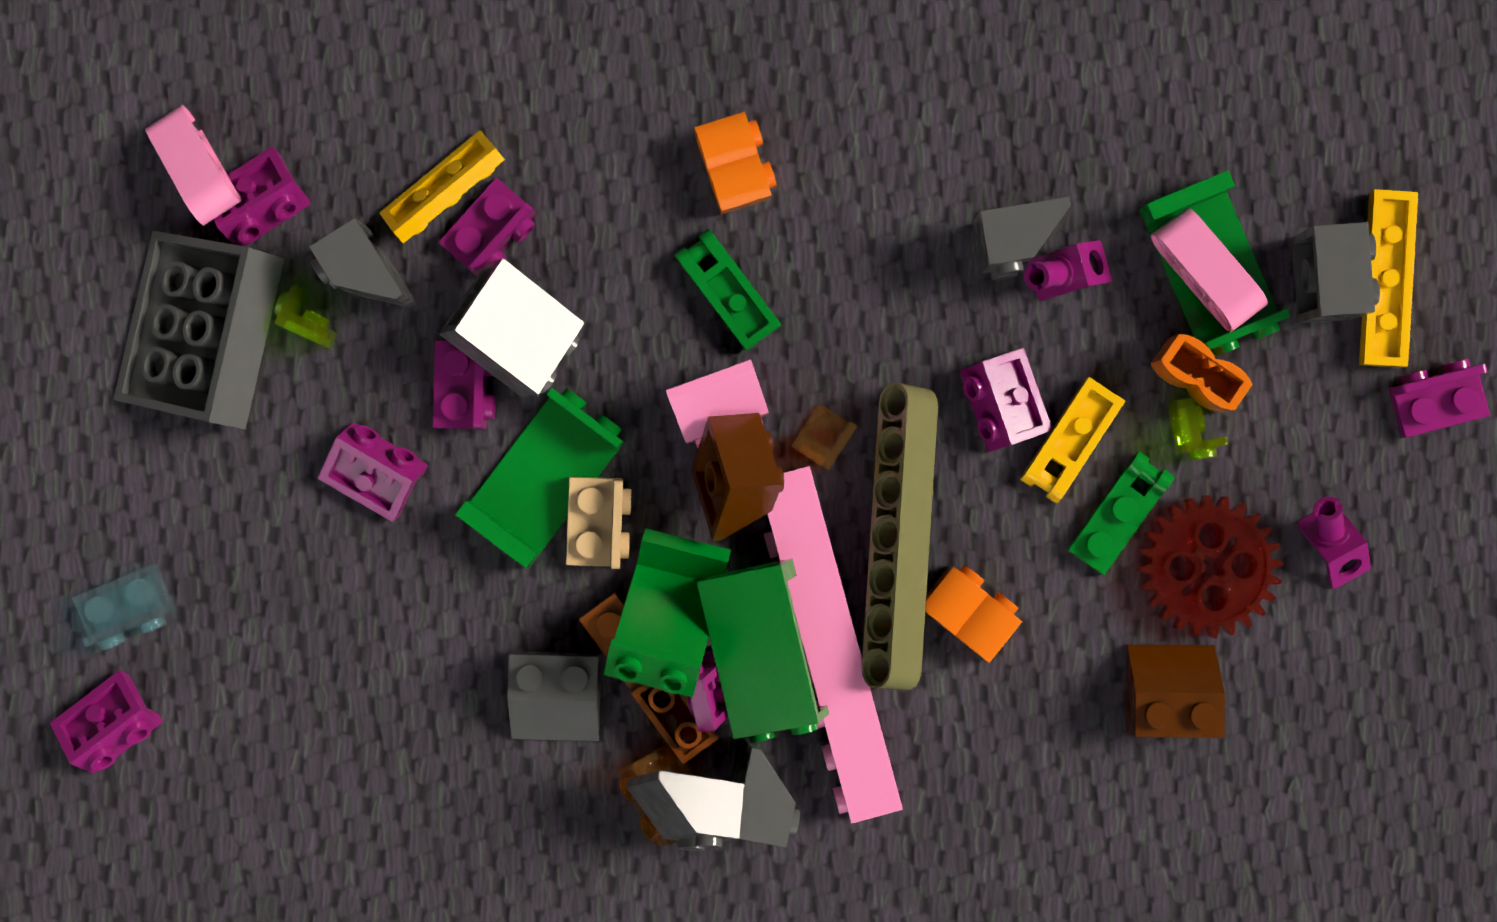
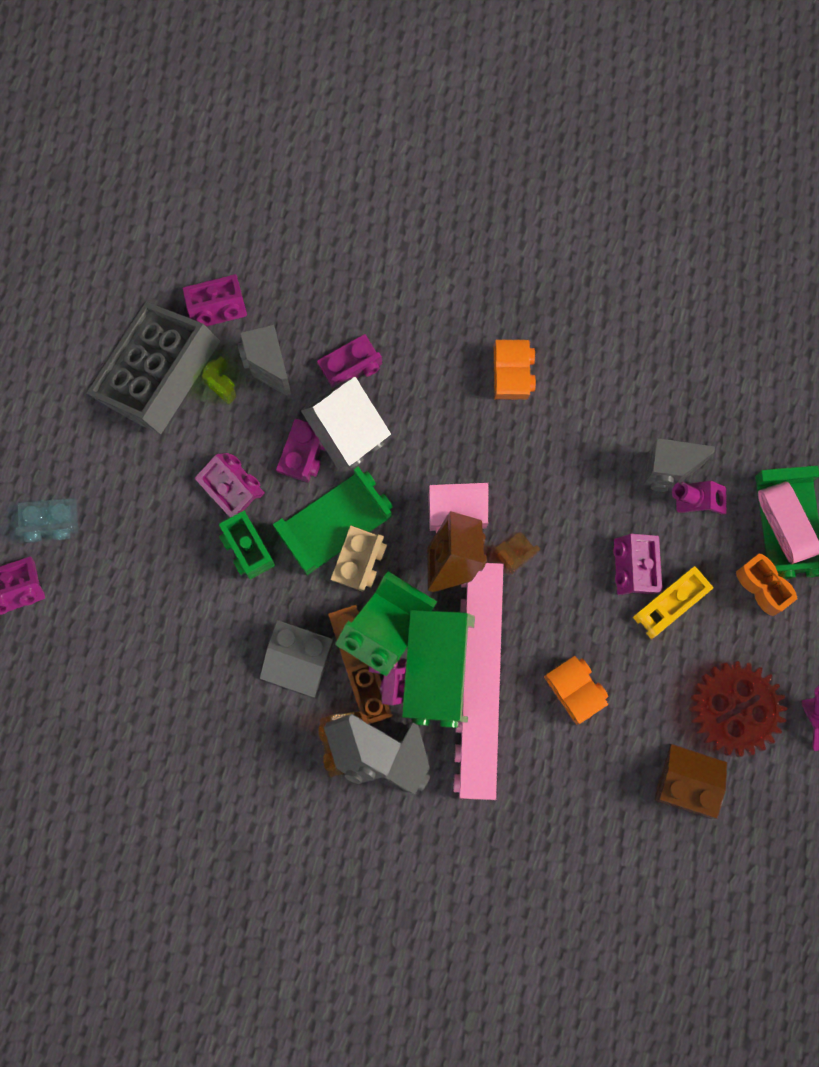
camera: 15 degrees right, 10 degrees down
(192, 165) = (185, 269): bright pink beam -> none
(427, 556) = (246, 544): none -> green brick
(441, 186) = (330, 329): yellow plate -> none
(728, 291) = (485, 445): green plate -> none
(899, 537) = (545, 627): olive beam -> none
(1119, 514) = (689, 659): green plate -> none
(1187, 424) = (748, 616): clear neon green bracket -> none

